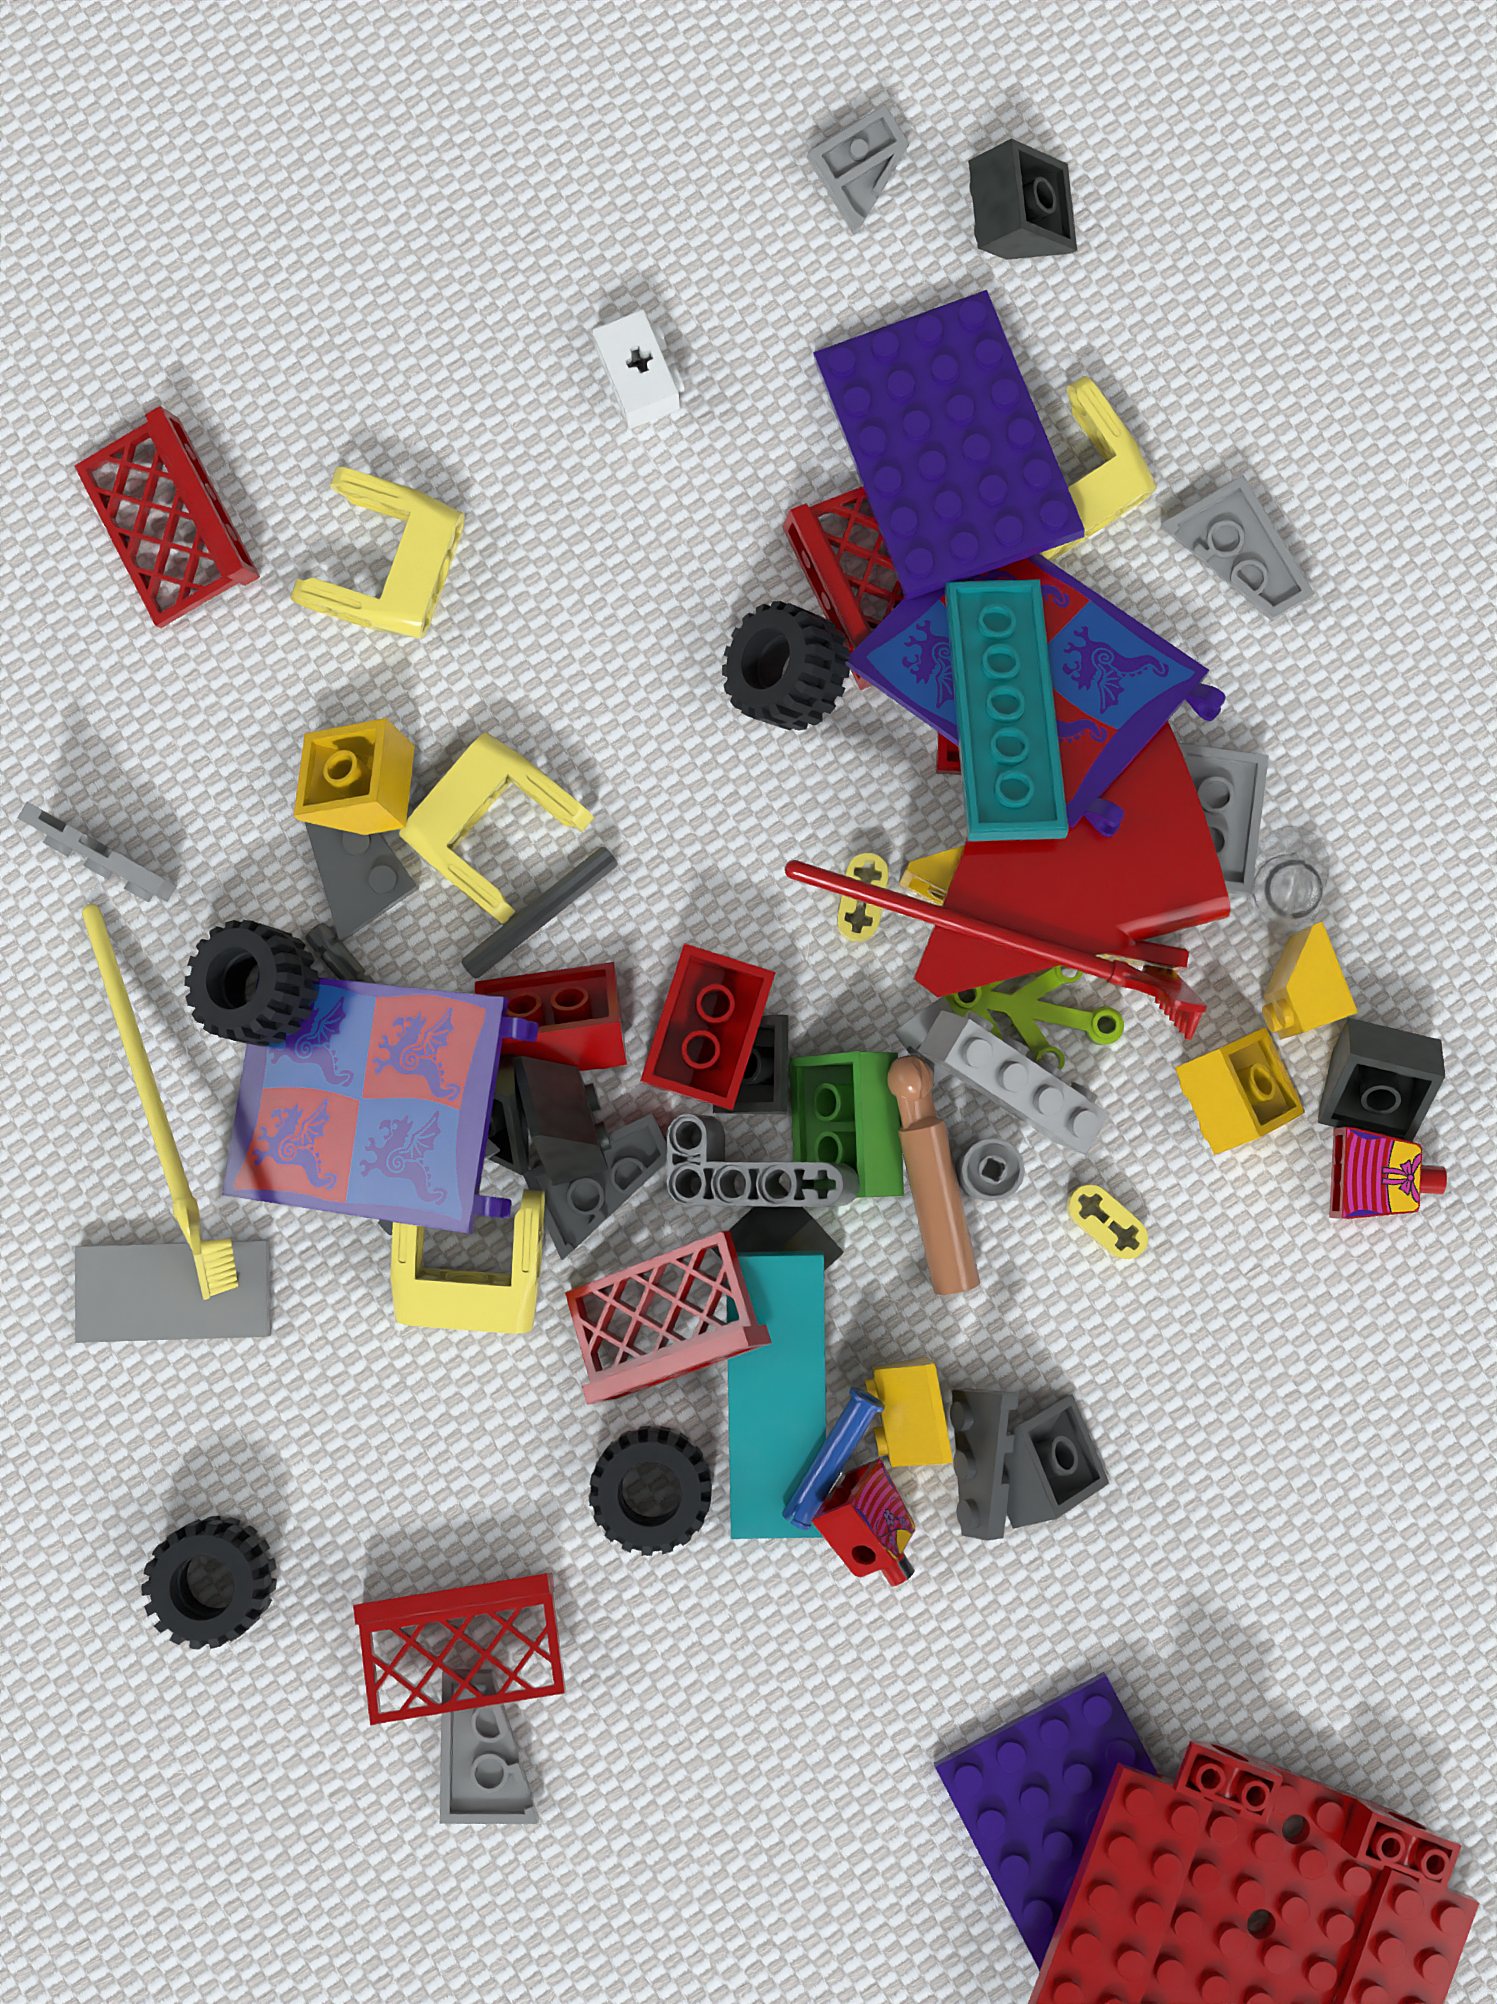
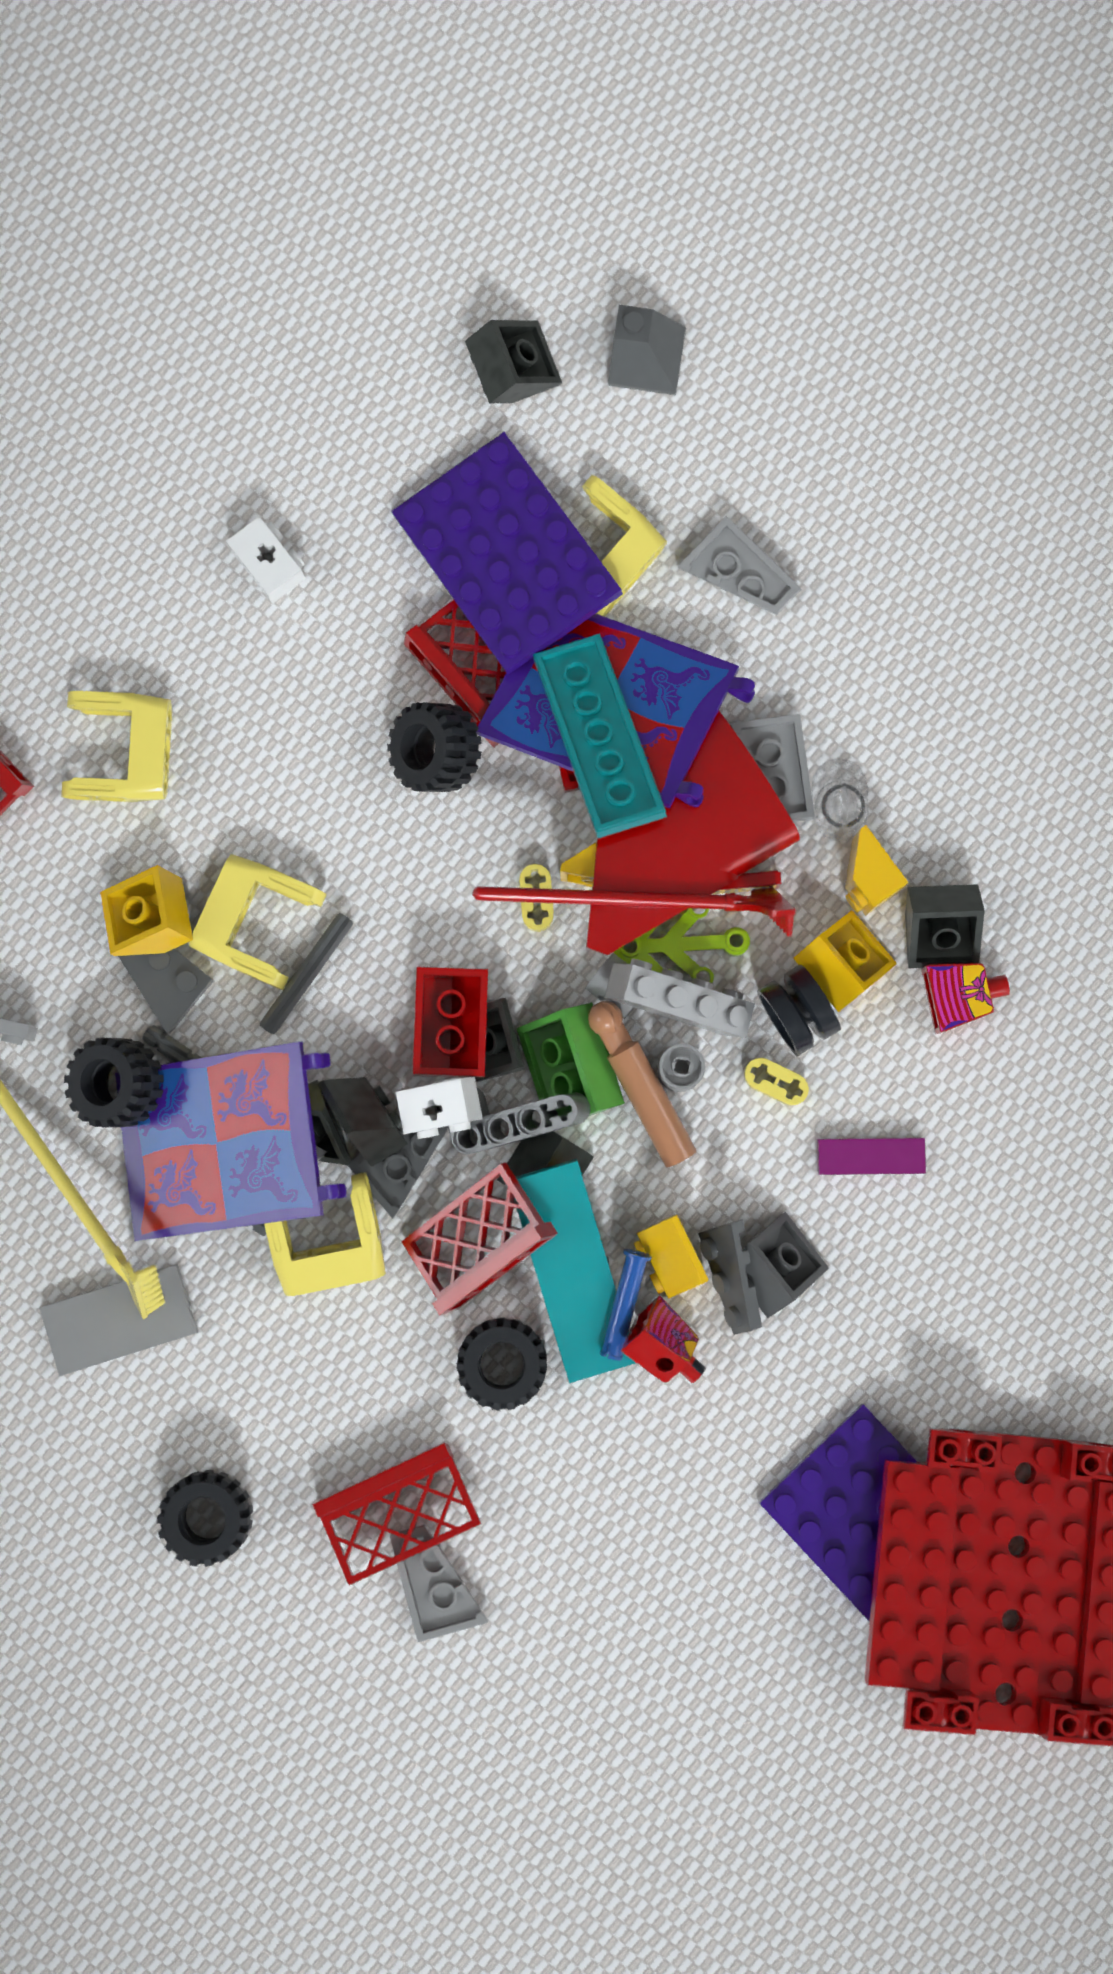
camera: 10 degrees left, 0 degrees up
(574, 1011) = (351, 1037): red slope -> none
(636, 1130) = (458, 1102): none -> white brick
(859, 163) = (386, 363): light grey wing -> none
(1165, 1138) = (799, 1010): none -> black wheel
(1196, 238) = (646, 351): none -> dark grey slope
(1204, 1354) = (871, 1156): none -> magenta tile

